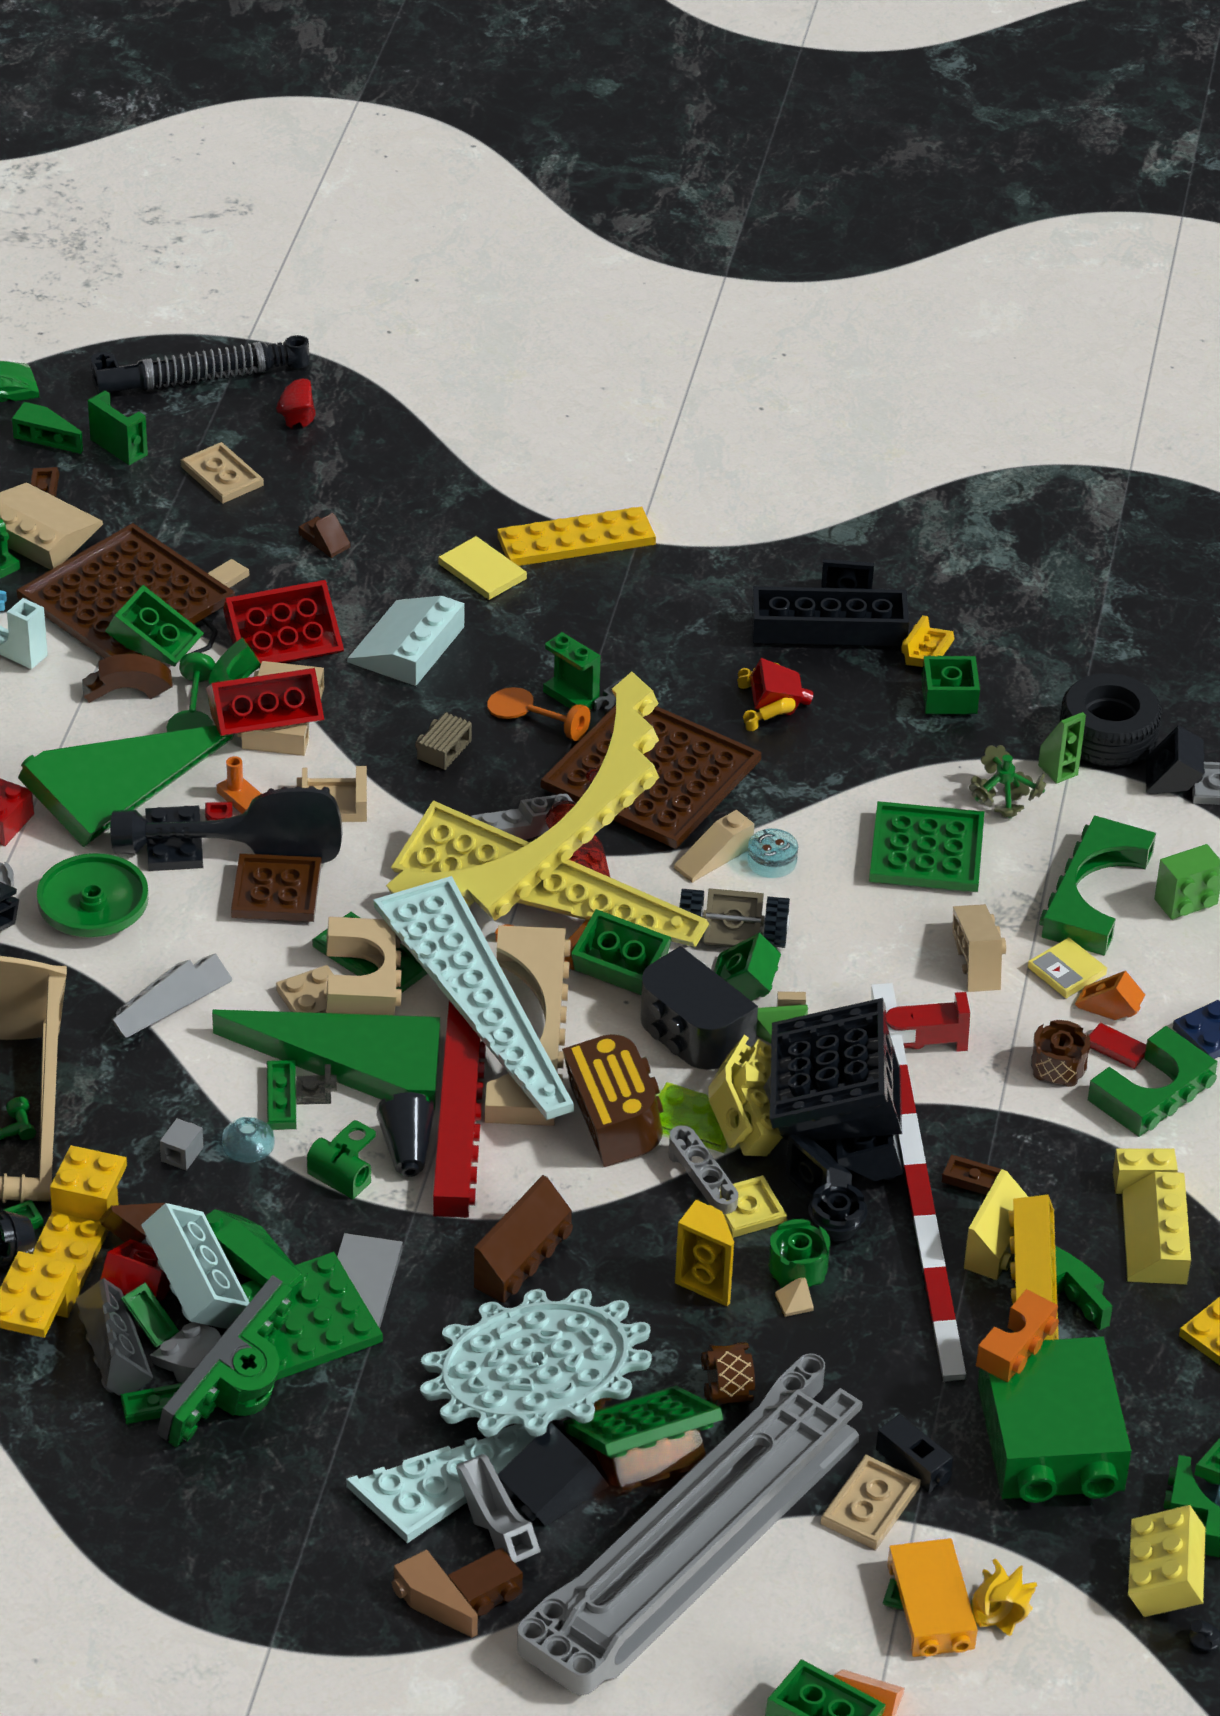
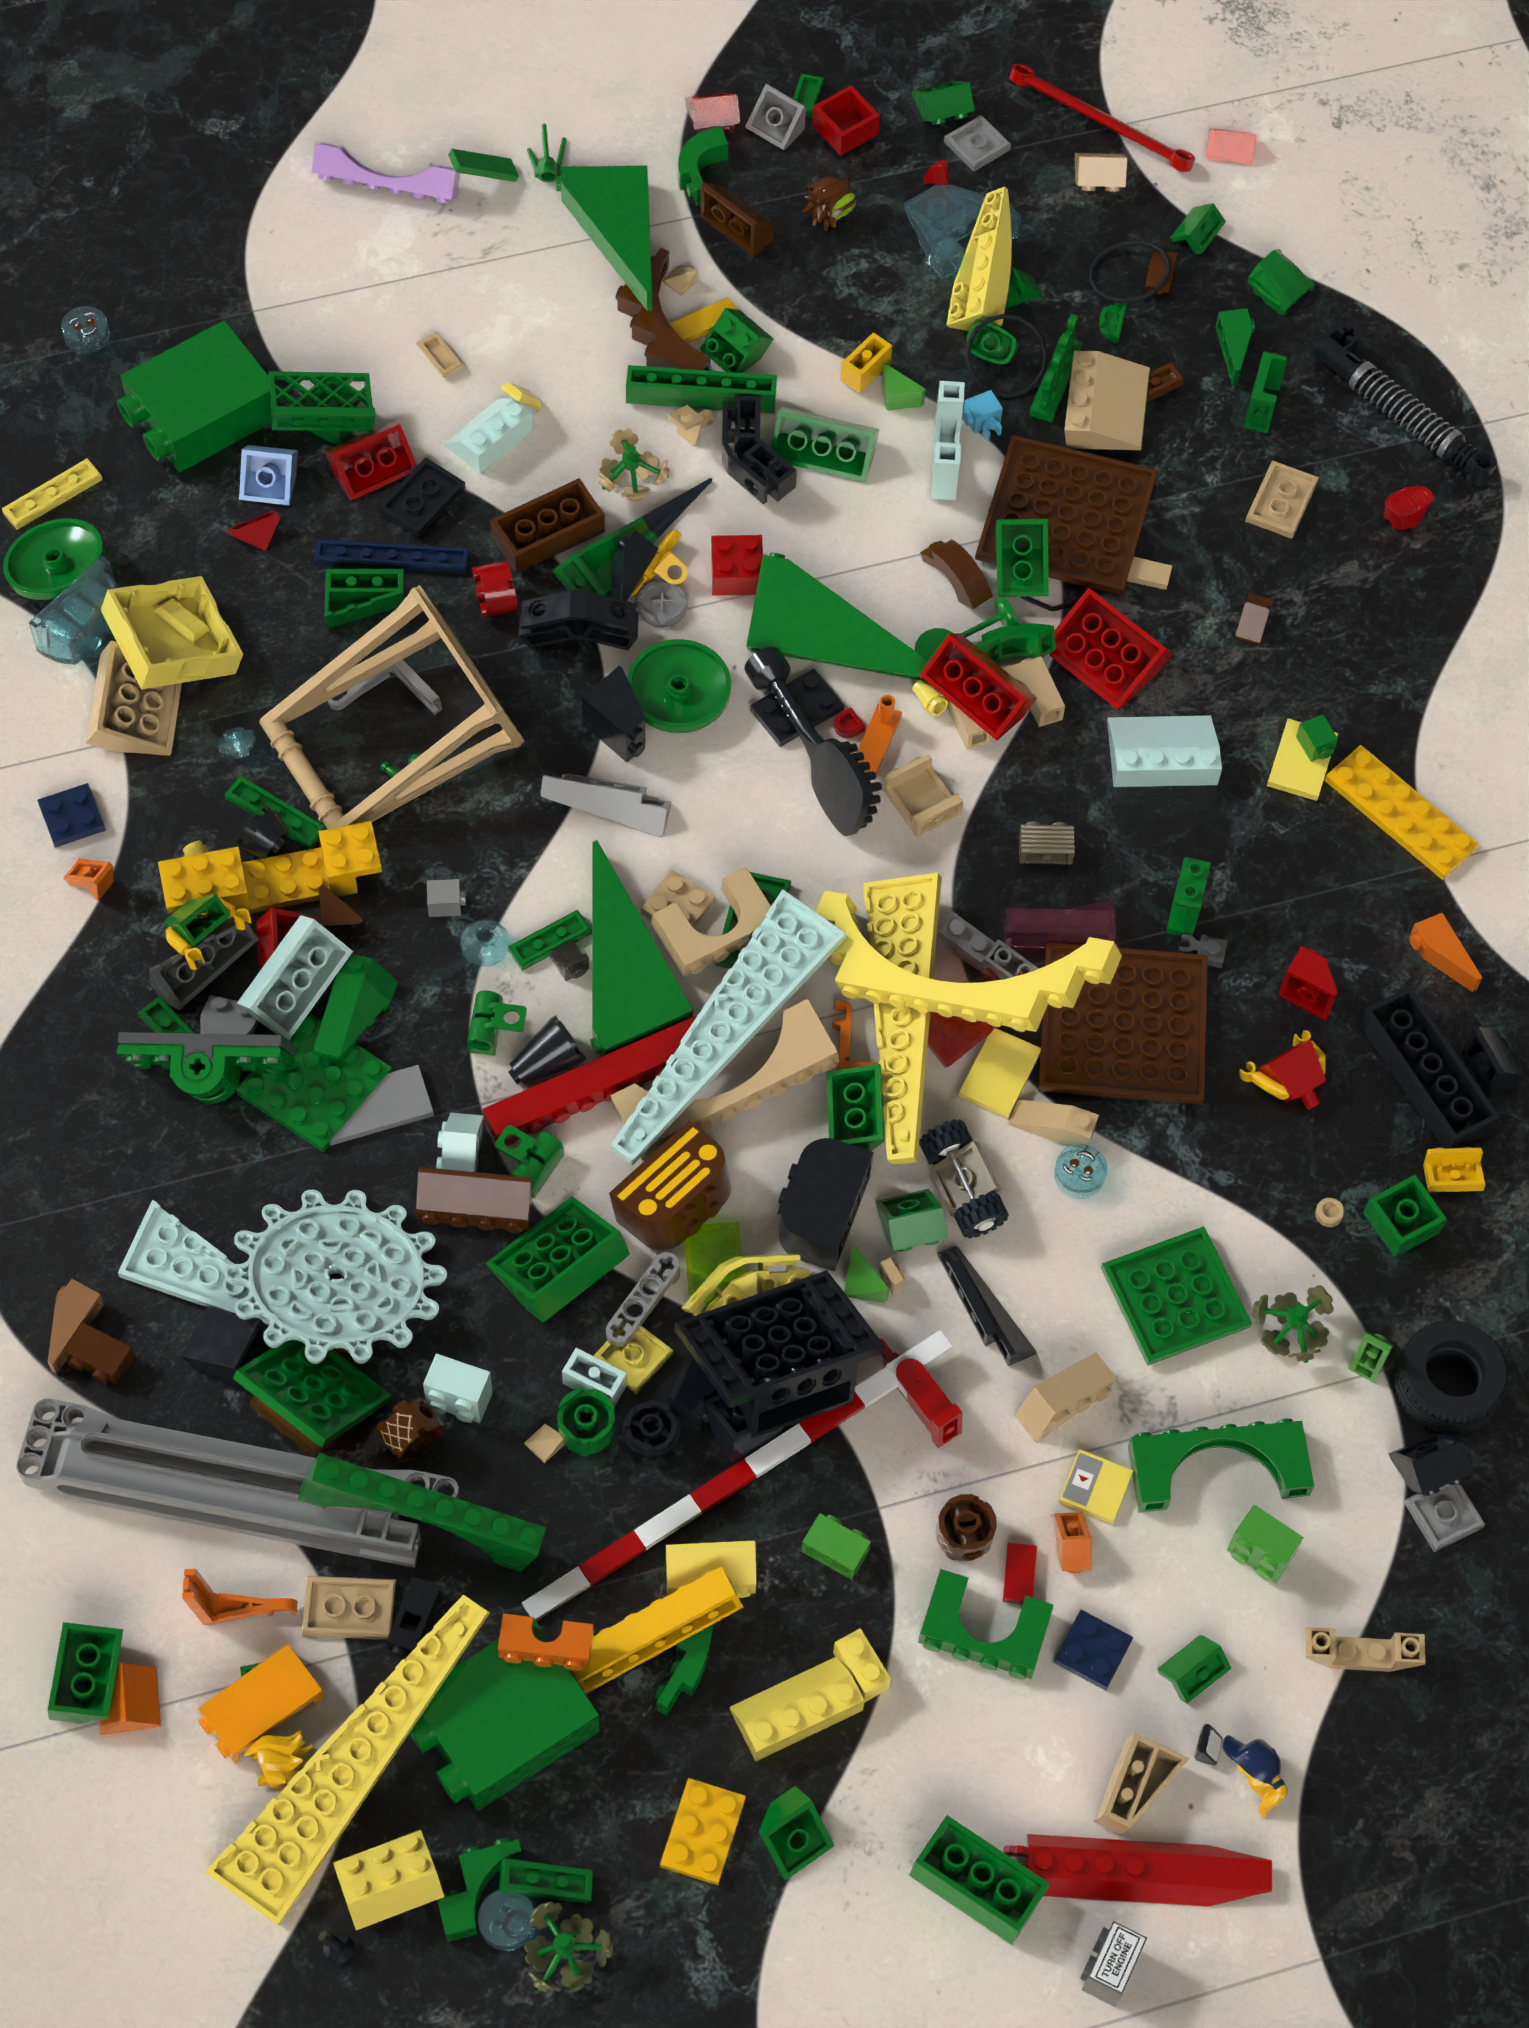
camera: 60 degrees right, 20 degrees up
(86, 1306) = (198, 919): none -> green torso
(94, 943) = (615, 715): none -> black slope
(150, 1315) = (243, 970): green tile -> none
(242, 747) = (930, 698): none -> light yellow cone
(276, 887) = (783, 811): reddish brown plate -> none
(457, 1222) = (460, 1142): none -> light aqua brick
(477, 543) = (1317, 738): none -> green brick
(494, 1510) = (172, 1322): light grey arch -> none
(502, 1181) = (535, 1157): none -> green piece
(516, 702) = (1139, 872): orange piece -> none
(537, 755) = (1071, 926): none -> clear pink wedge
(618, 1212) = (559, 1258): none -> green slope
(642, 863) = (1000, 1072): none -> light yellow tile
(704, 643) = (1309, 983): none -> red slope
(705, 1253) = (529, 1346): yellow slope -> none
(707, 1320) = (457, 1389): none -> light aqua piece
(727, 565) = (1443, 949): none -> orange slope
(753, 1229) = (592, 1373): none -> light aqua brick
(783, 1396) = (343, 1484): none -> green arch
(807, 1585) = (223, 1607): none -> orange hinge
(853, 966) = (984, 1309): none -> black wedge
(911, 731) = (1329, 1212): none -> tan tile
(969, 1174) = (773, 1523): reddish brown plate -> none
(1023, 1143) = (836, 1545): none -> bright green brick
(1078, 1604) = (301, 1825): none -> light yellow wing

